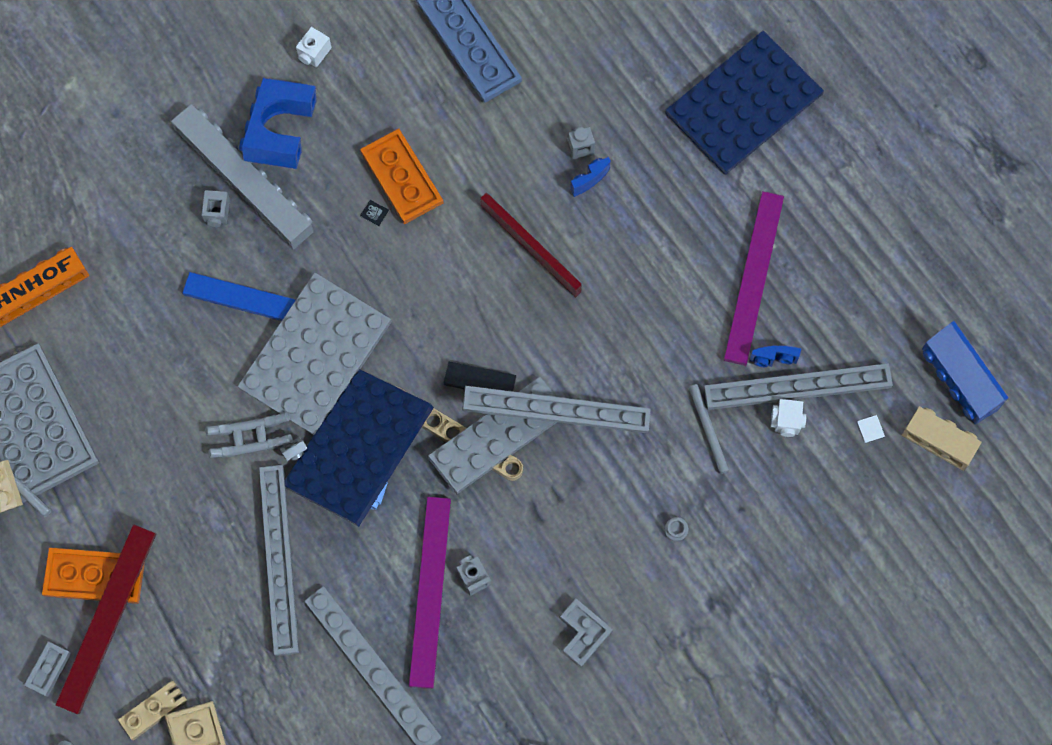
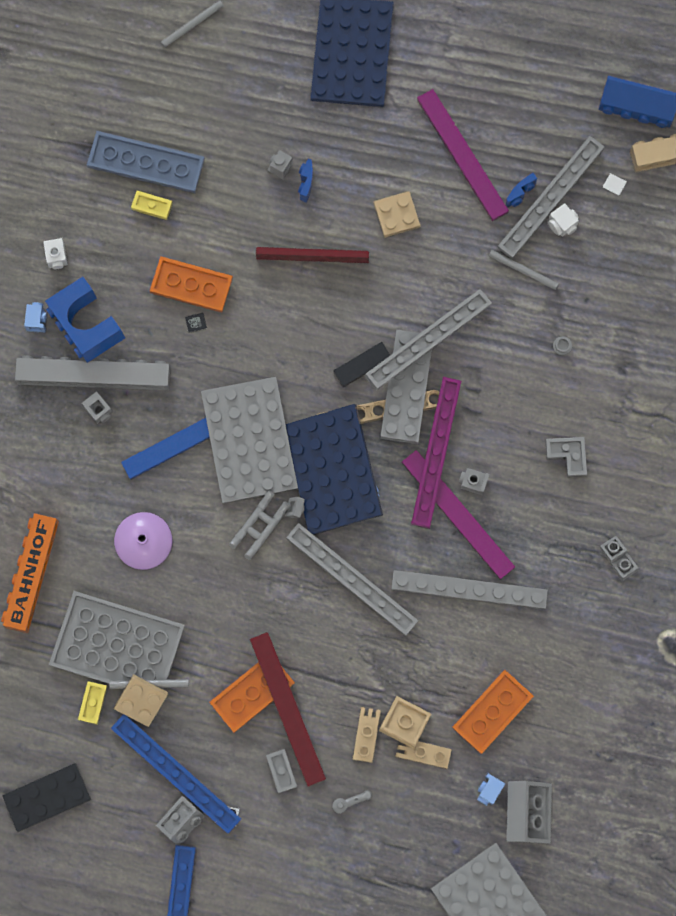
camera: 45 degrees left, 5 degrees up
(142, 370) = (143, 554): none -> lavender dish
(243, 86) = (35, 317): none -> light blue brick
(436, 80) = (151, 205): none -> light yellow plate
(464, 517) = (436, 452): none -> magenta tile
(642, 277) = (396, 214): none -> tan plate

